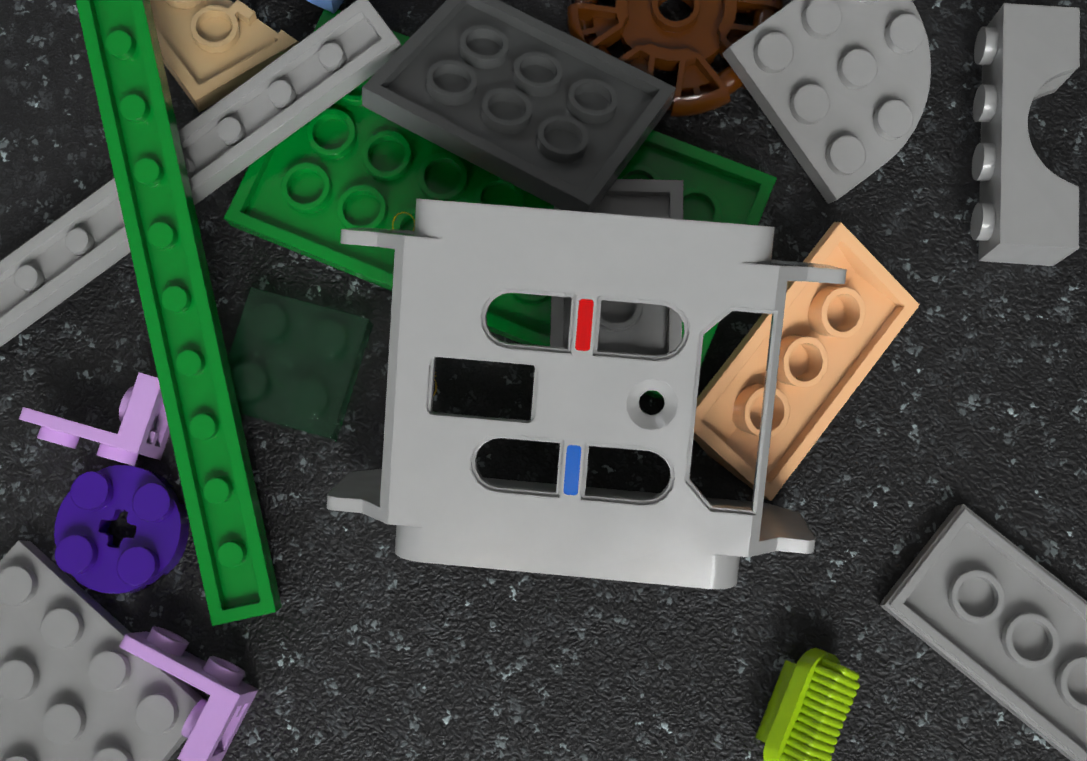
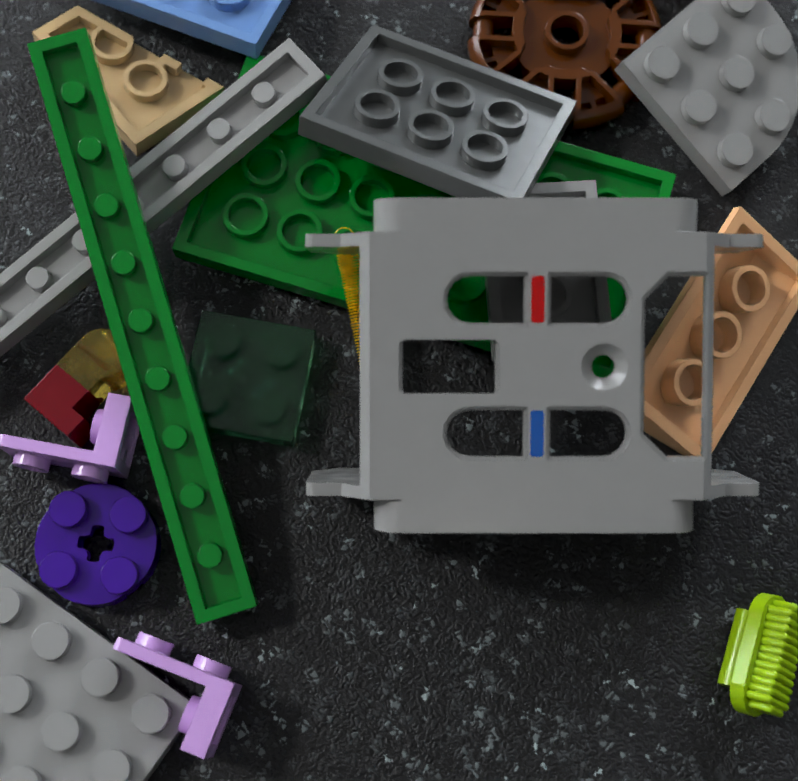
camera: 15 degrees left, 5 degrees down
(108, 362) = (79, 385): none -> leg

